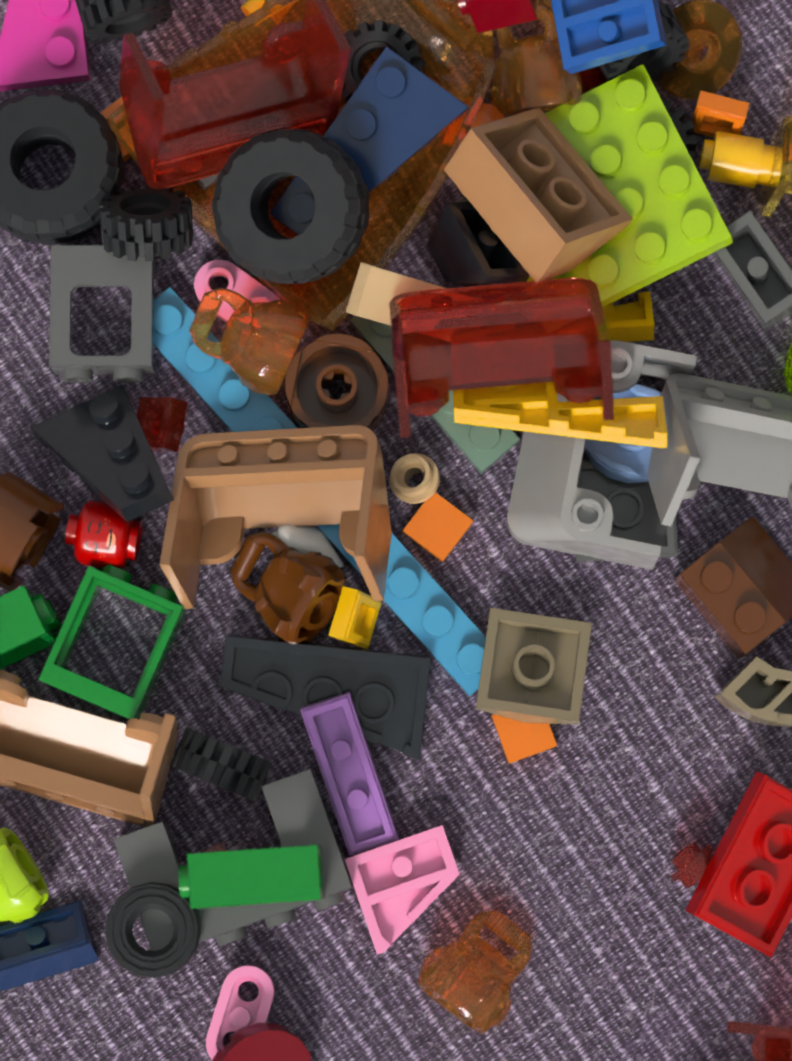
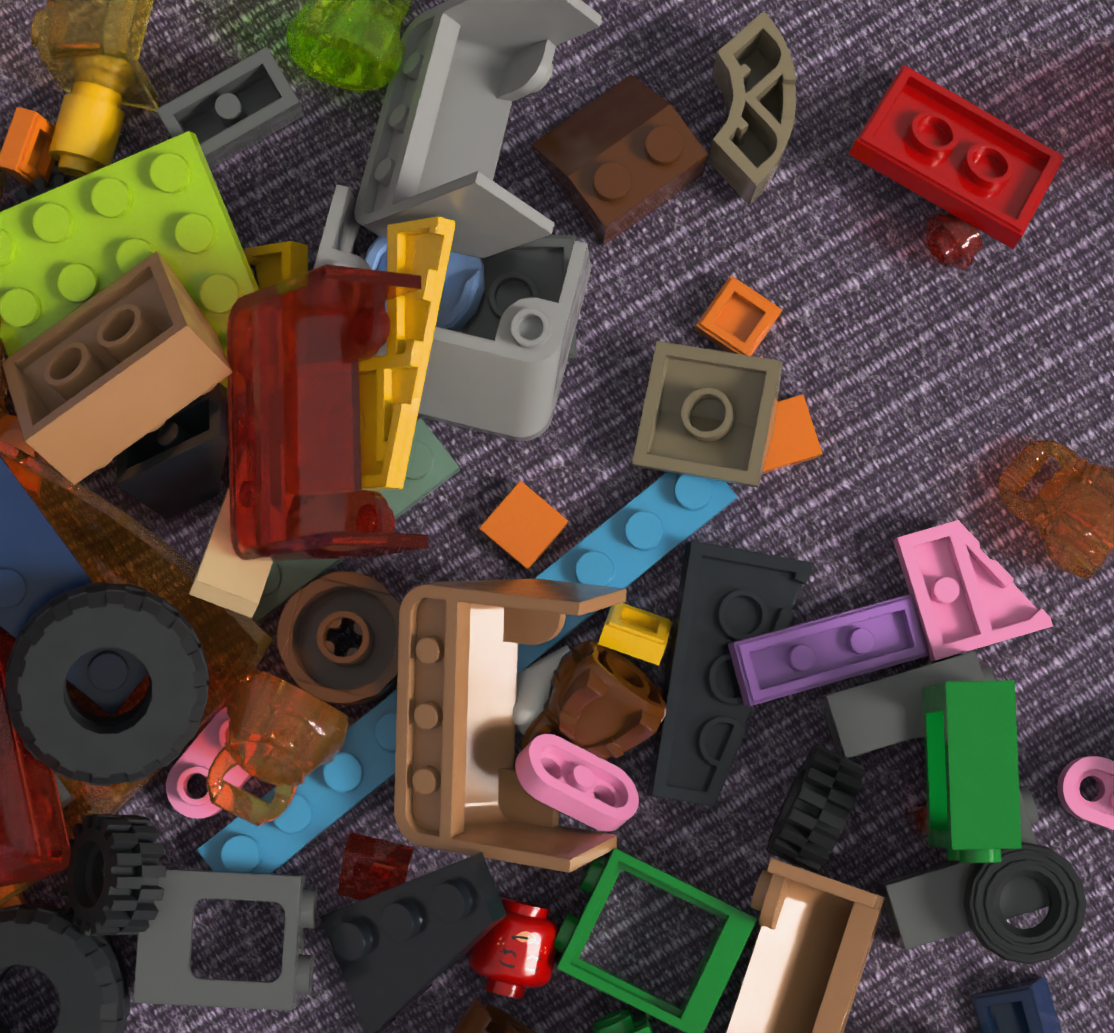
camera: 90 degrees left, 0 degrees up
(236, 570) = (576, 782): none -> bright pink plate
(408, 466) = (449, 563): tan plate -> none
(617, 691) = (738, 318): none -> orange tile

